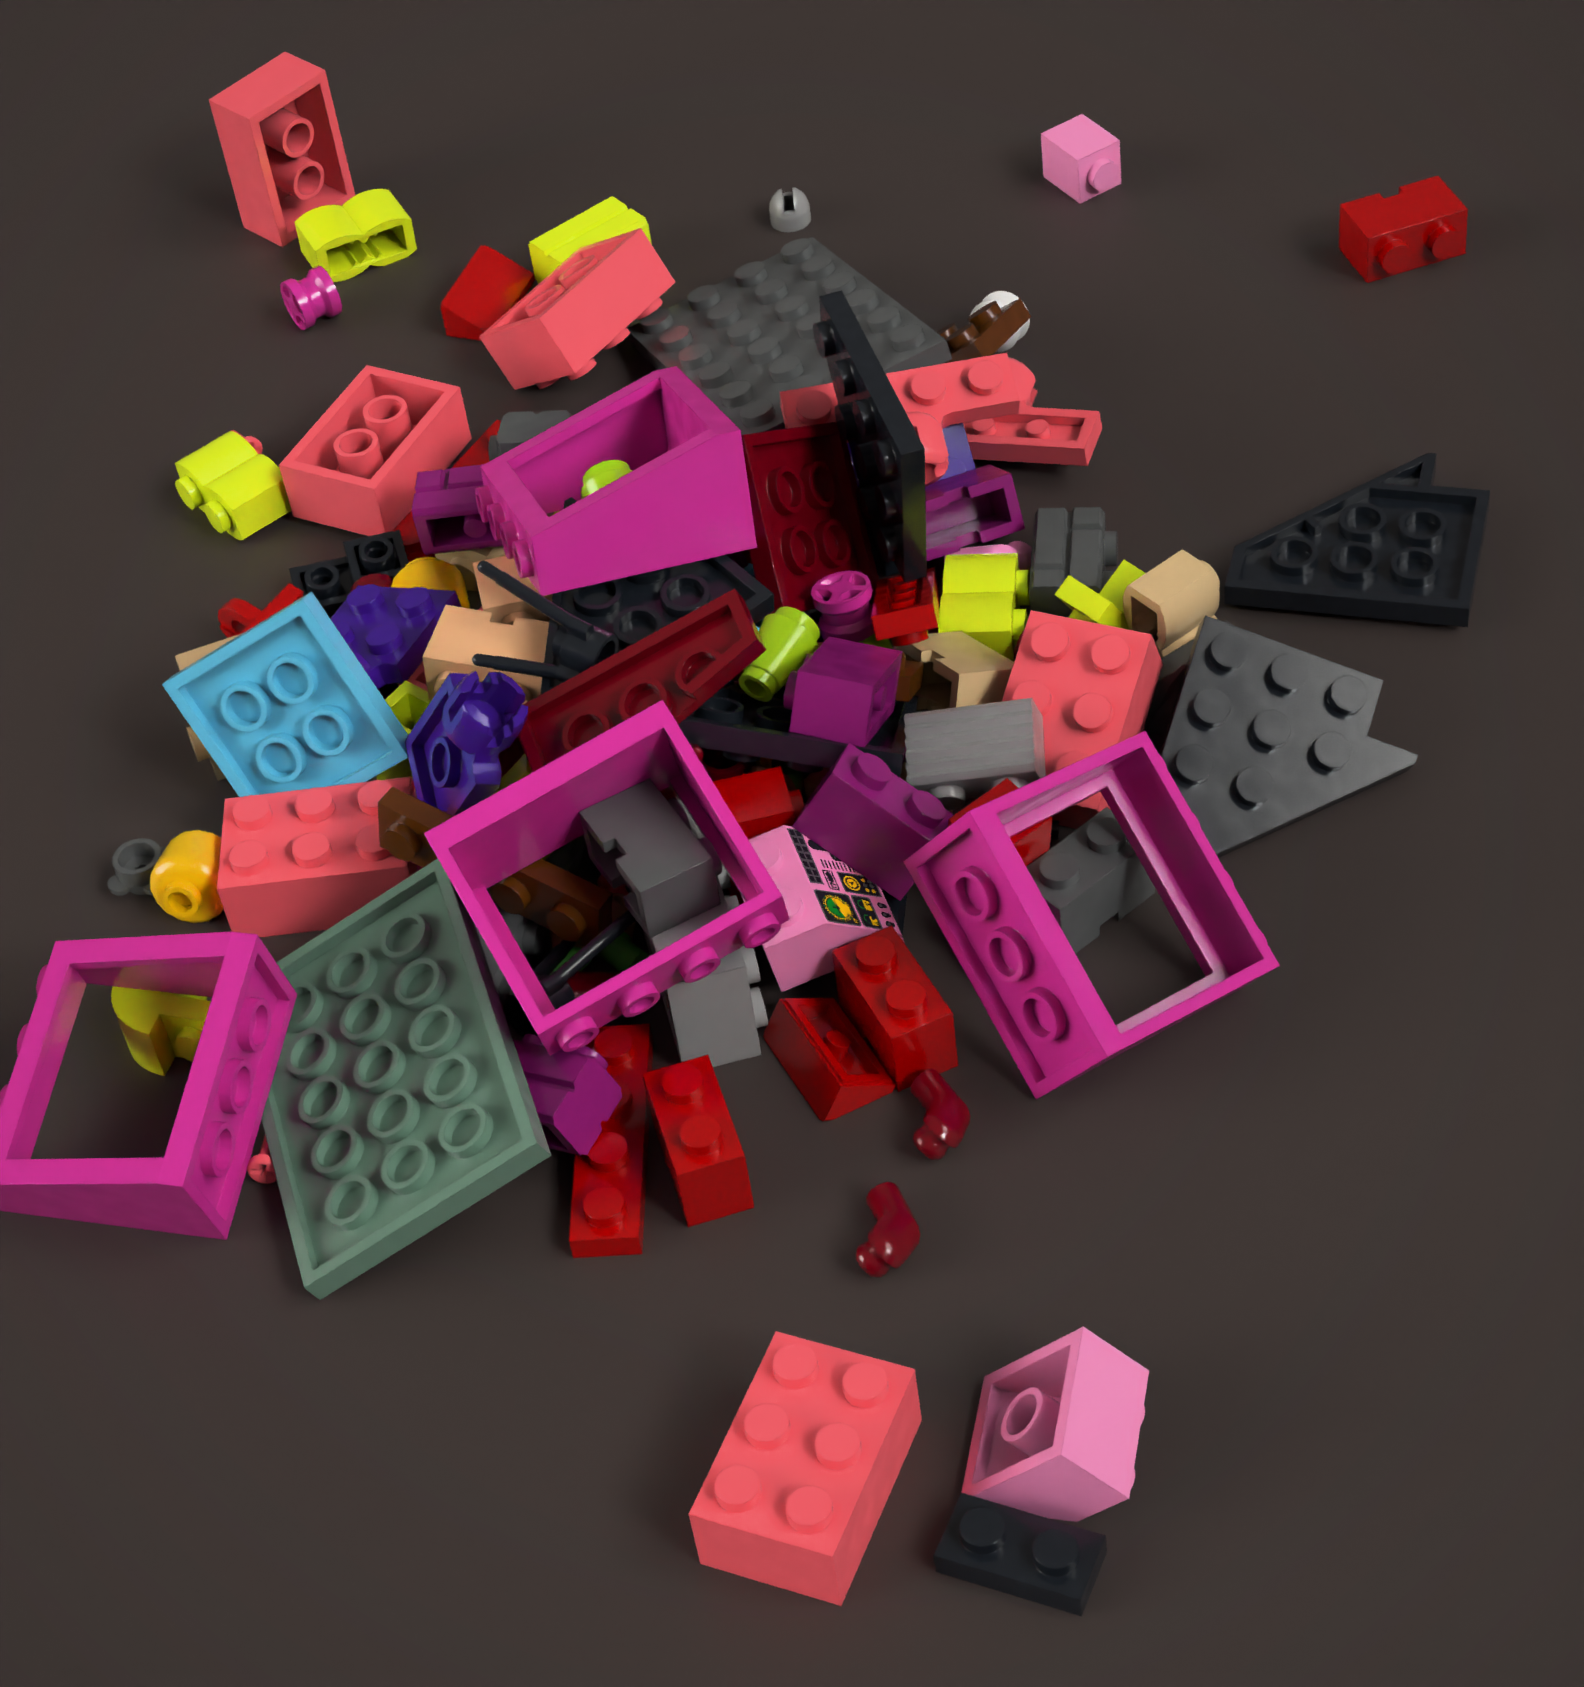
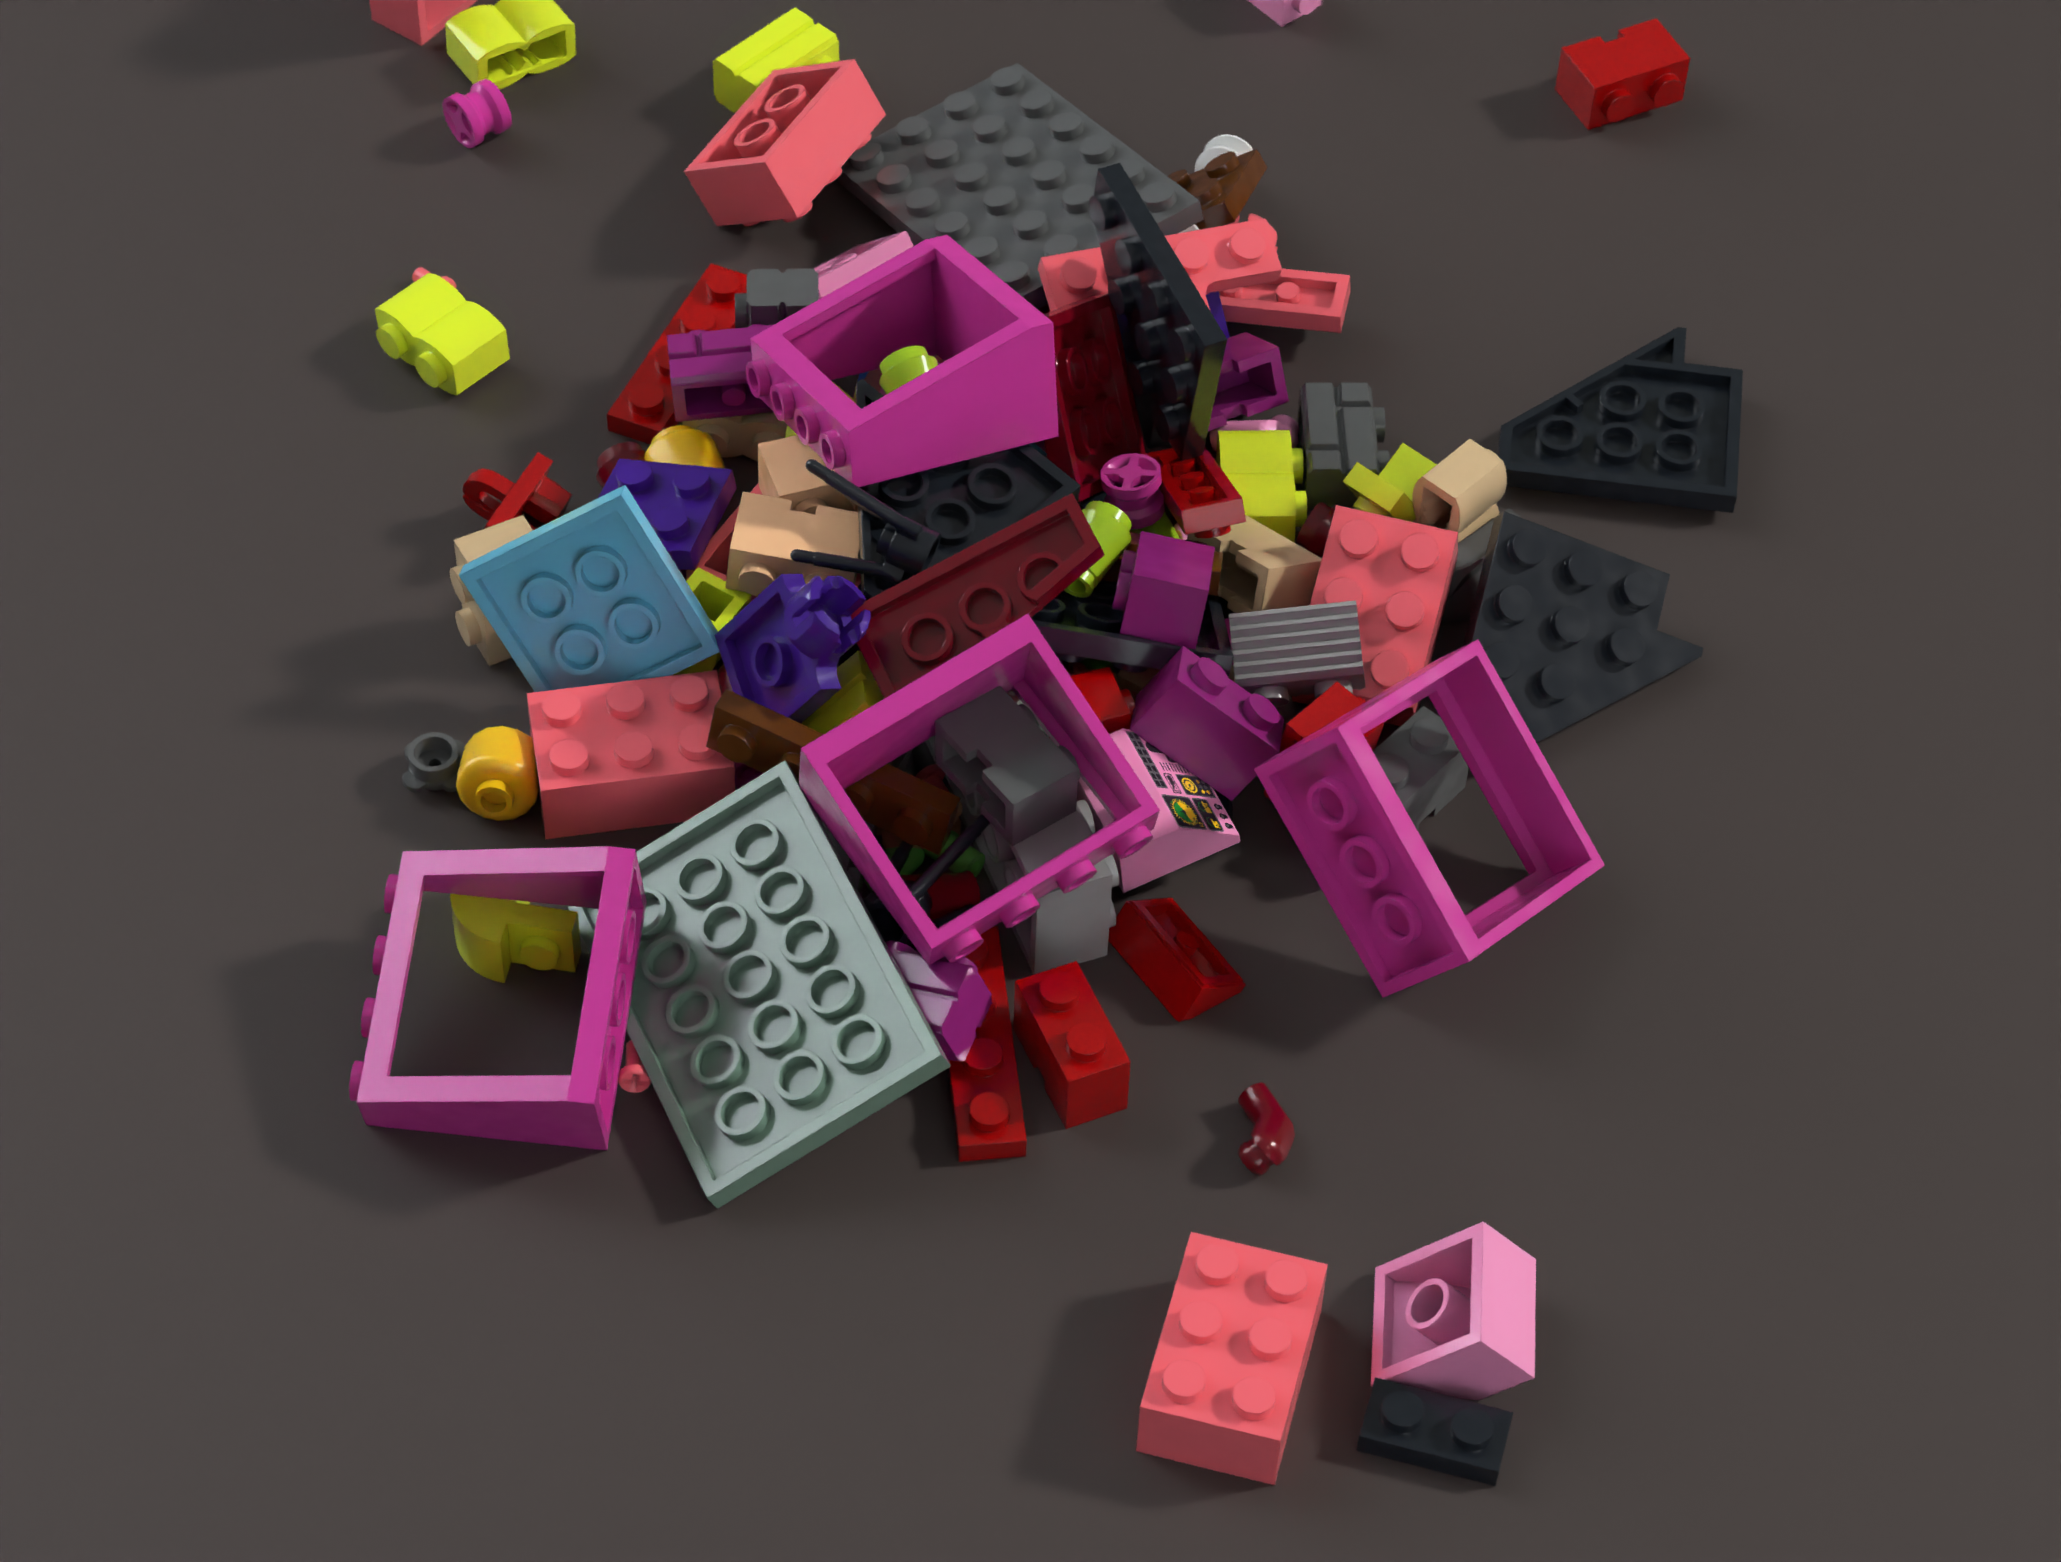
camera: 15 degrees left, 5 degrees up
(363, 556) = (580, 442): black slope -> none
(369, 445) = (594, 301): coral brick -> none
(483, 293) = (668, 117): red slope -> none
(789, 210) = (981, 36): light grey hinge -> none
(895, 1006) = (1241, 908): red brick -> none
(945, 1116) = (1301, 1013): dark red arm -> none

